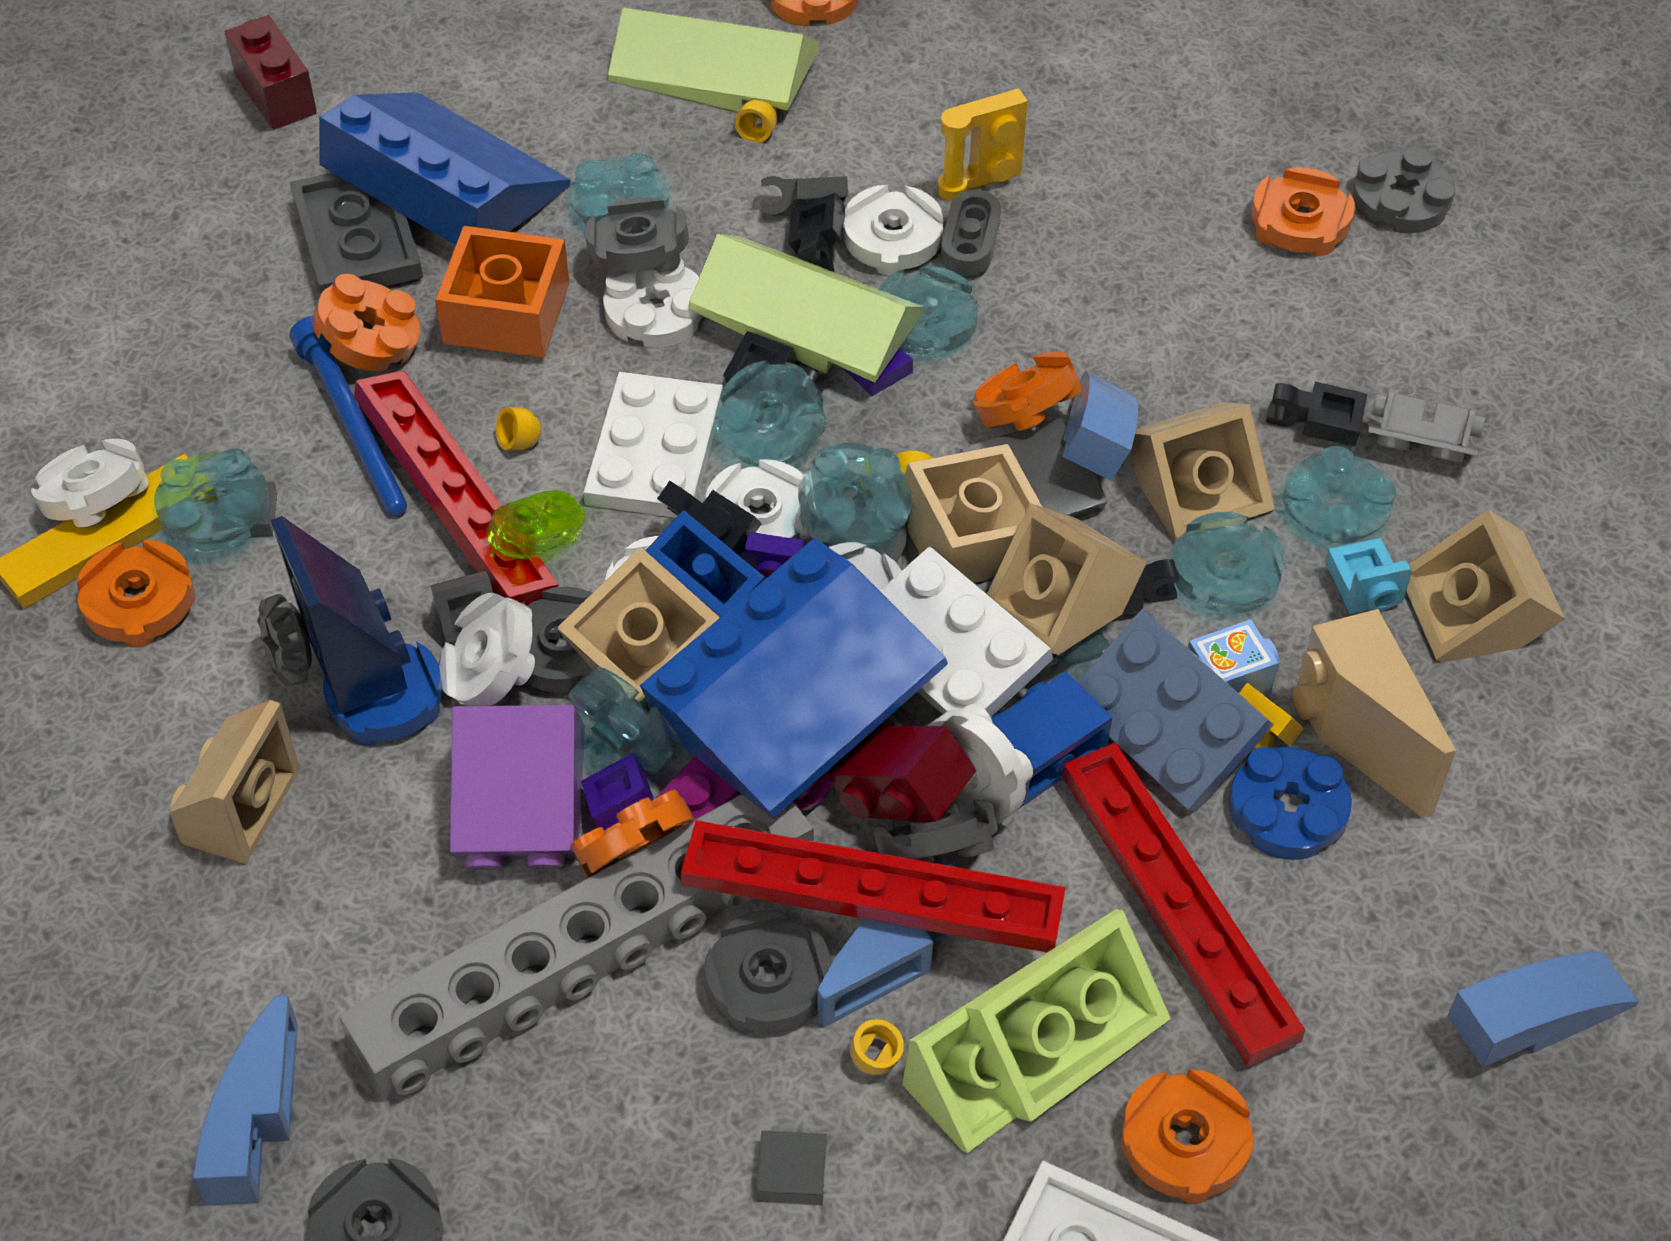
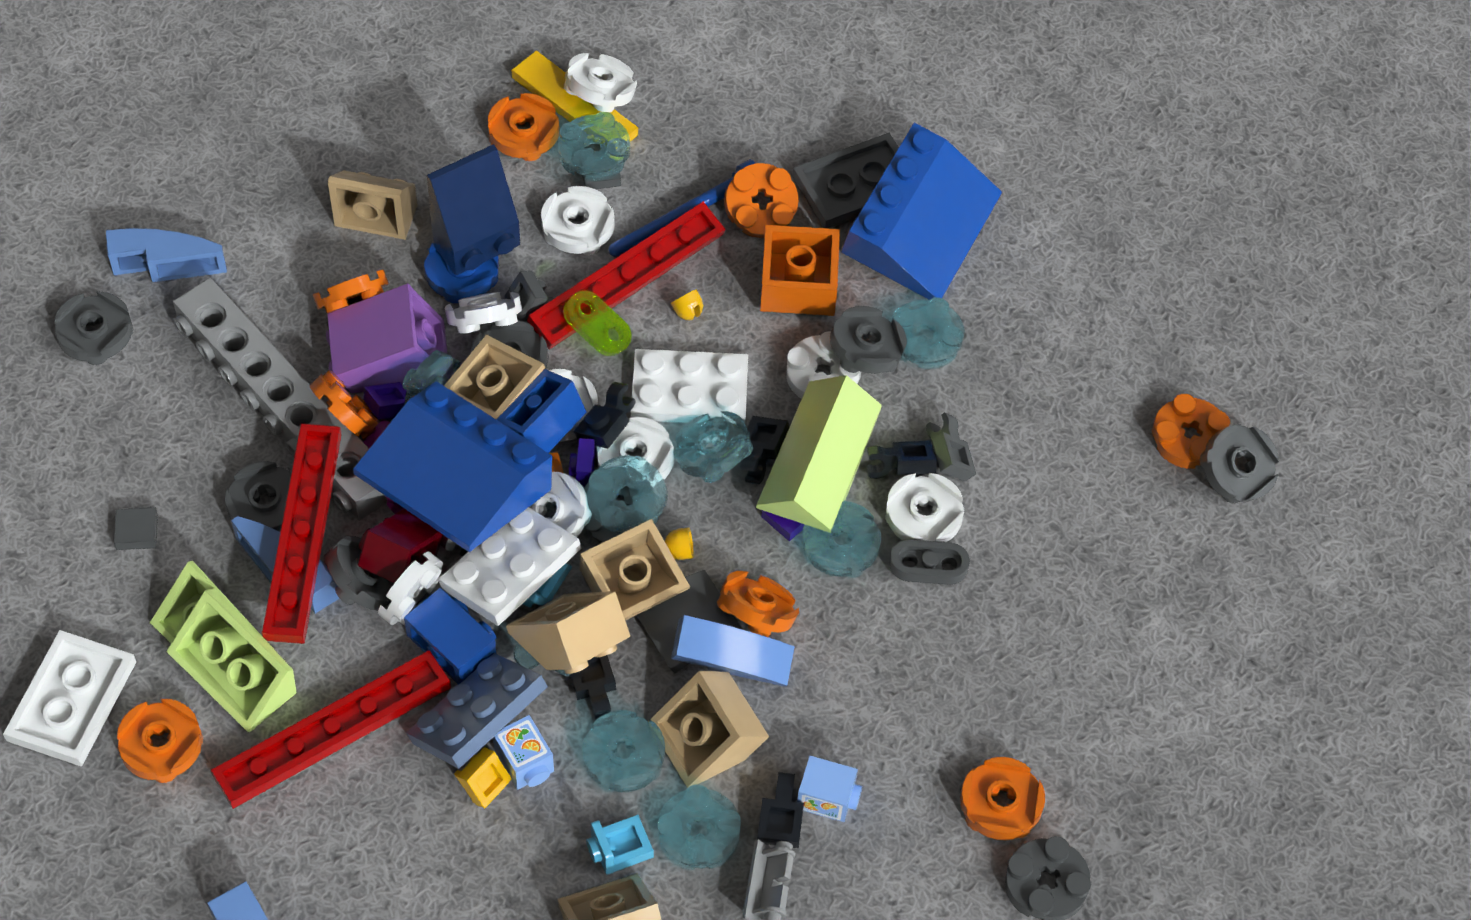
camera: 80 degrees right, 5 degrees up
(271, 72) = (997, 100): dark red brick -> none
(355, 515) = (582, 237): none -> white plate
(416, 817) = (351, 289): none -> orange plate
(709, 59) = (1085, 369): yellowish green slope -> none
(748, 117) = (1025, 409): yellow hinge -> none
(887, 1057) = (216, 554): yellow hinge -> none
(995, 146) = (1013, 557): yellow plate -> none
(1291, 356) = (829, 789): none -> light blue brick
(1297, 772) = (409, 778): blue plate -> none
(1373, 709) = (484, 832): tan slope -> none

